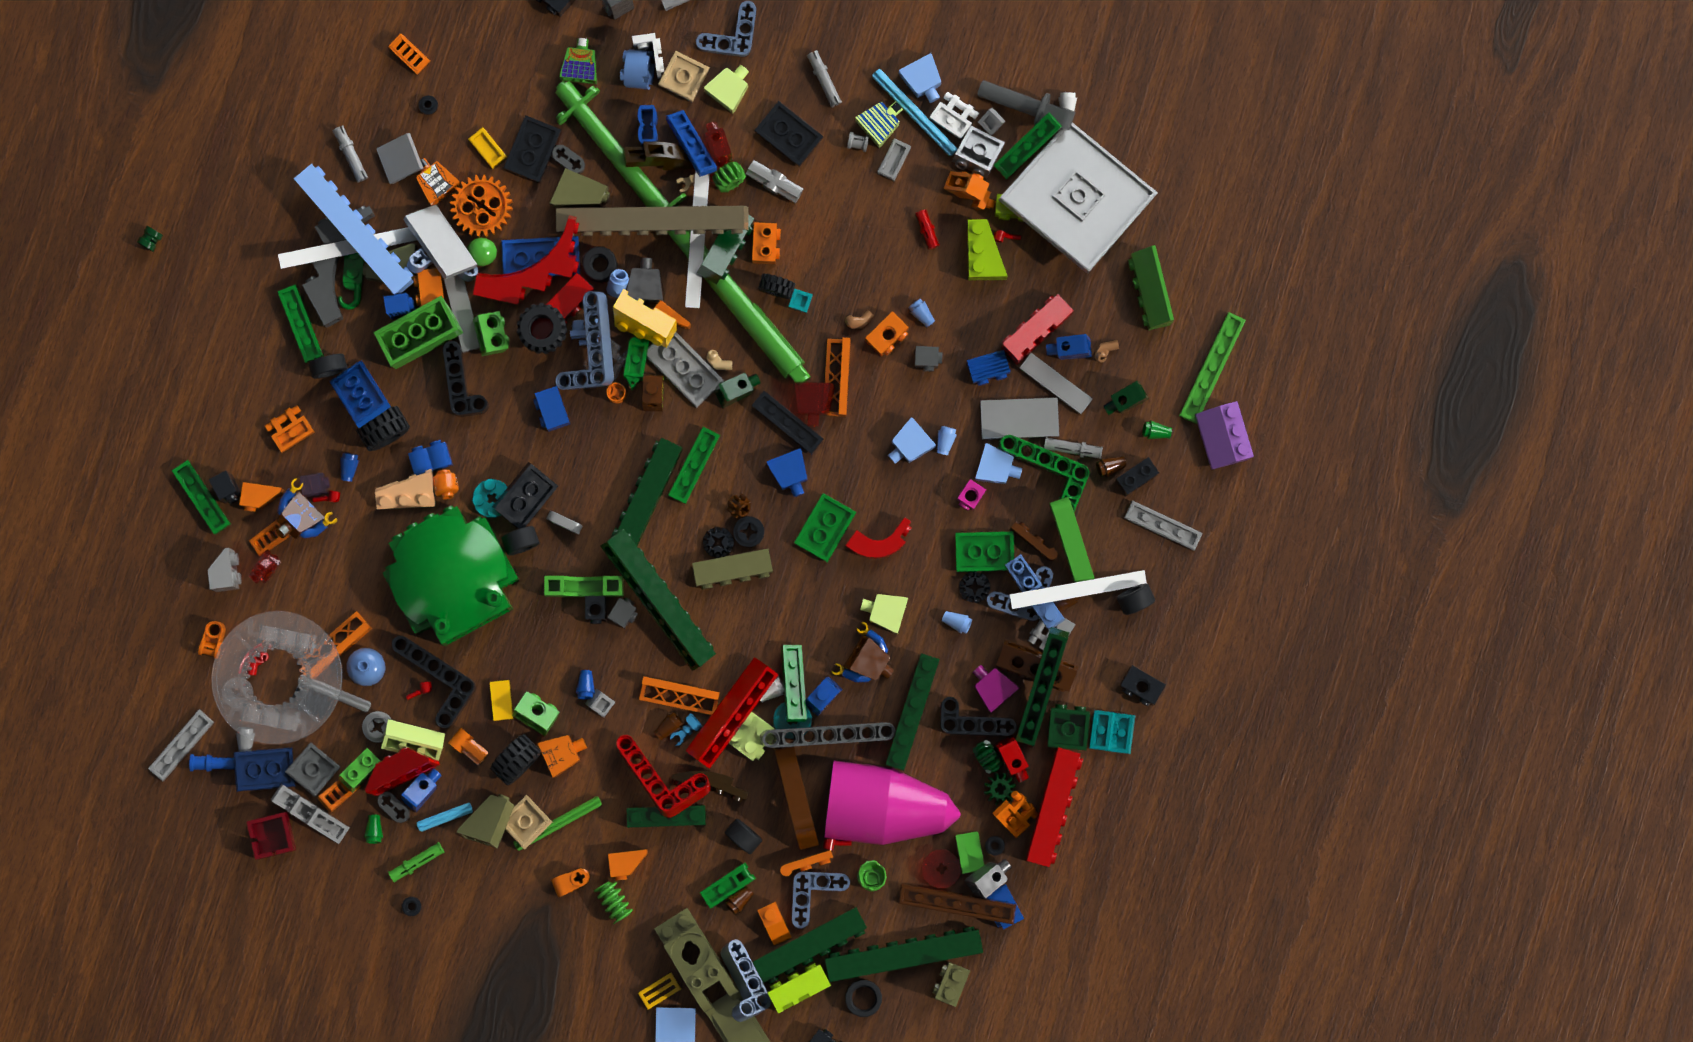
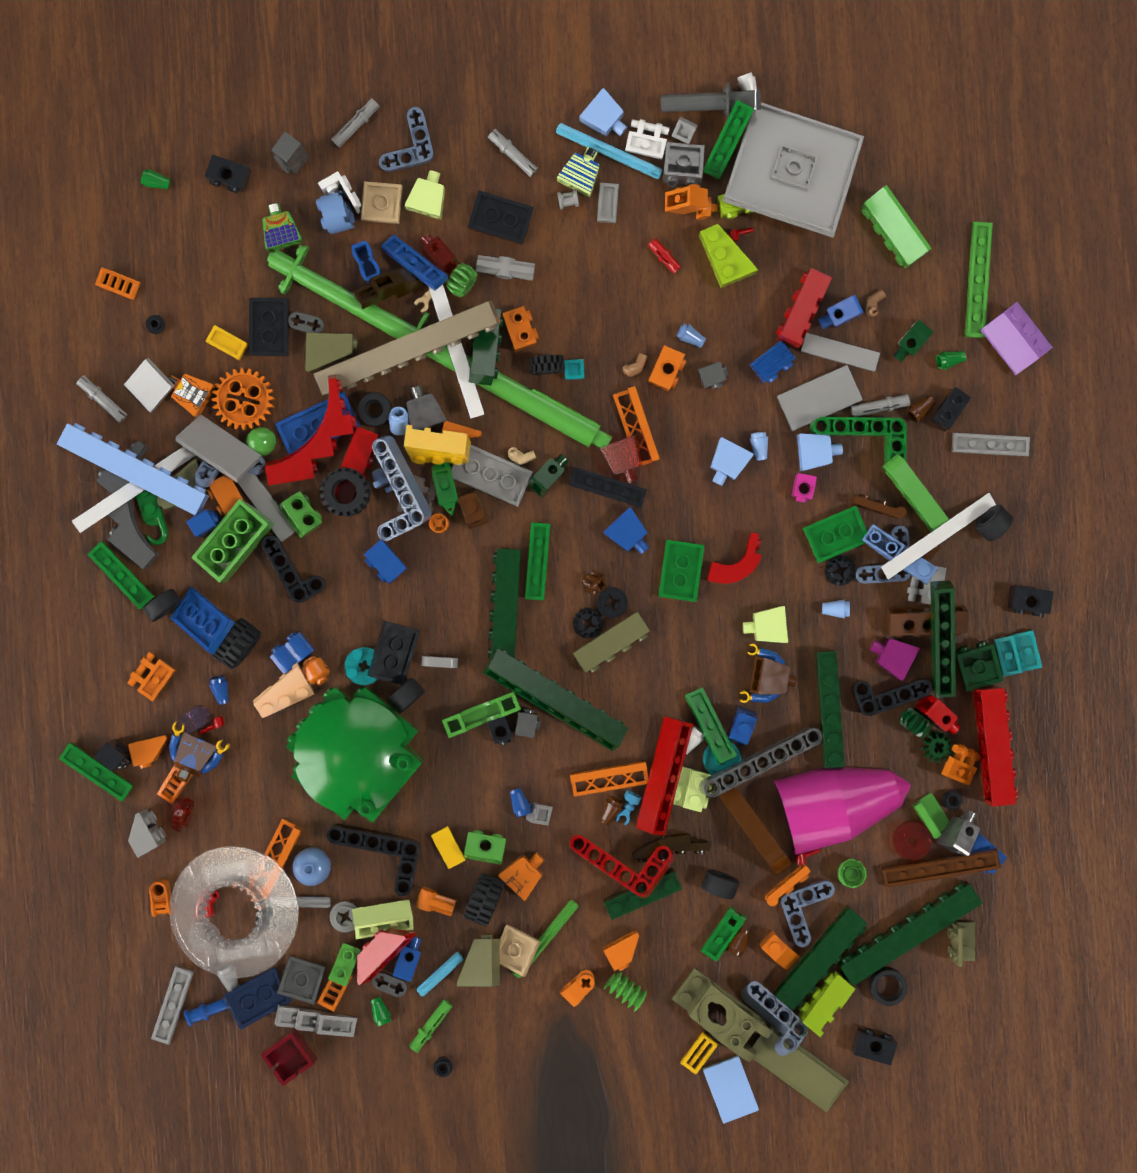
camera: 20 degrees left, 5 degrees up
(425, 688) = (374, 863): red hand -> none

